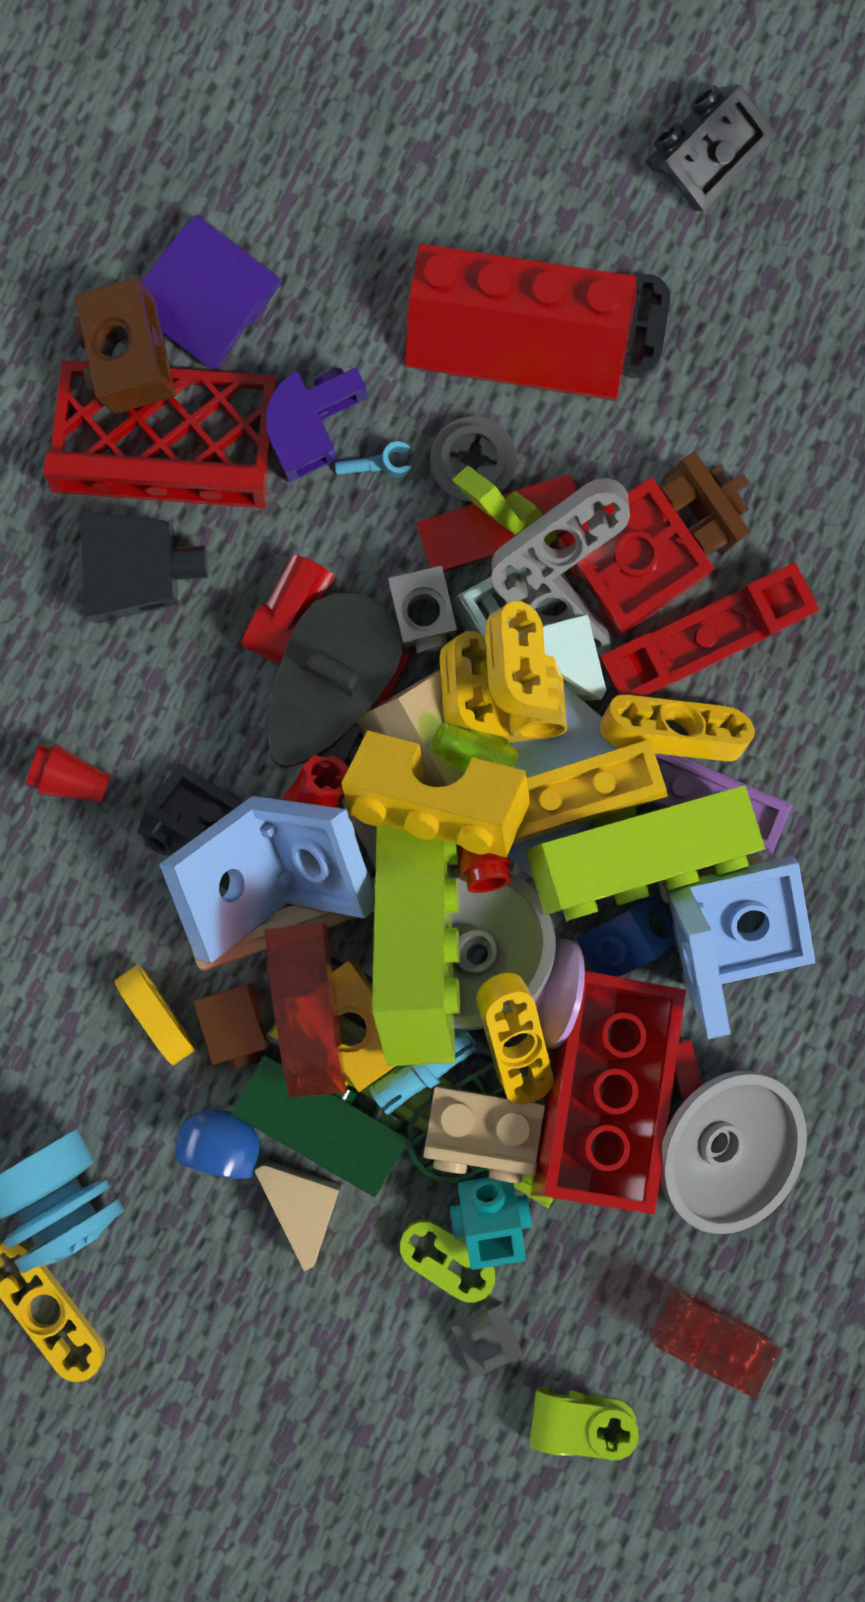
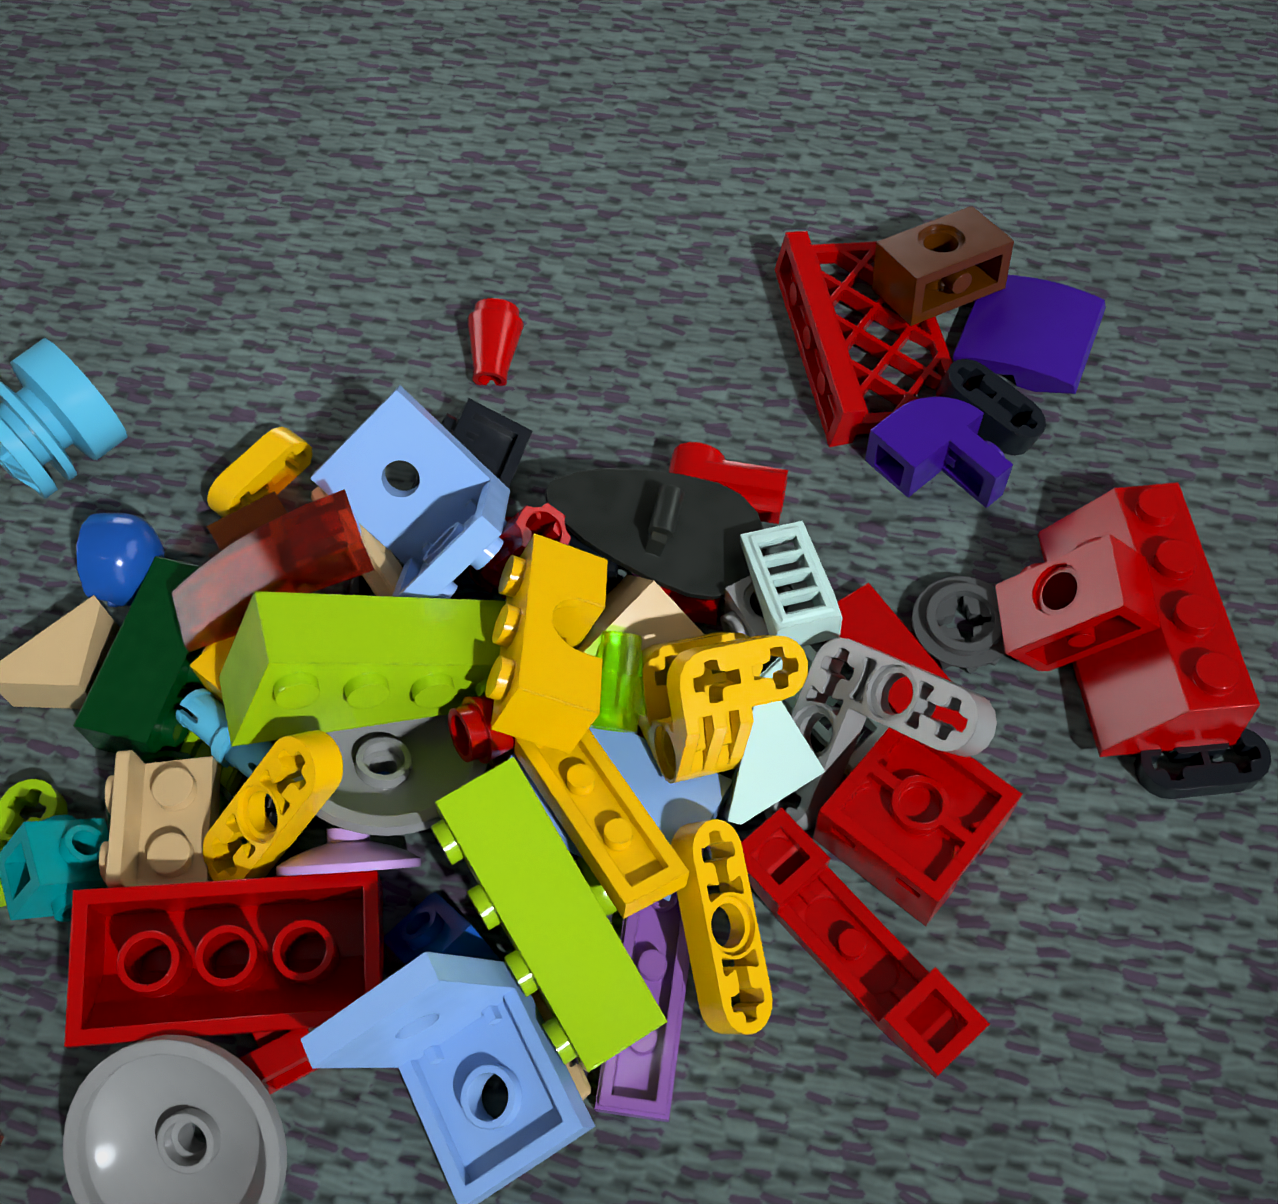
camera: 75 degrees right, 25 degrees down
(133, 565) = (722, 338): black torso -> none
(273, 353) = (998, 402): none -> black beam
(376, 462) = (921, 533): medium azure hand -> none
(442, 568) = (805, 625): none -> light aqua slope
(507, 341) = (1077, 604): none -> red brick
(512, 513) = (913, 639): lime slope -> none
(711, 500) = (998, 914): reddish brown hips -> none

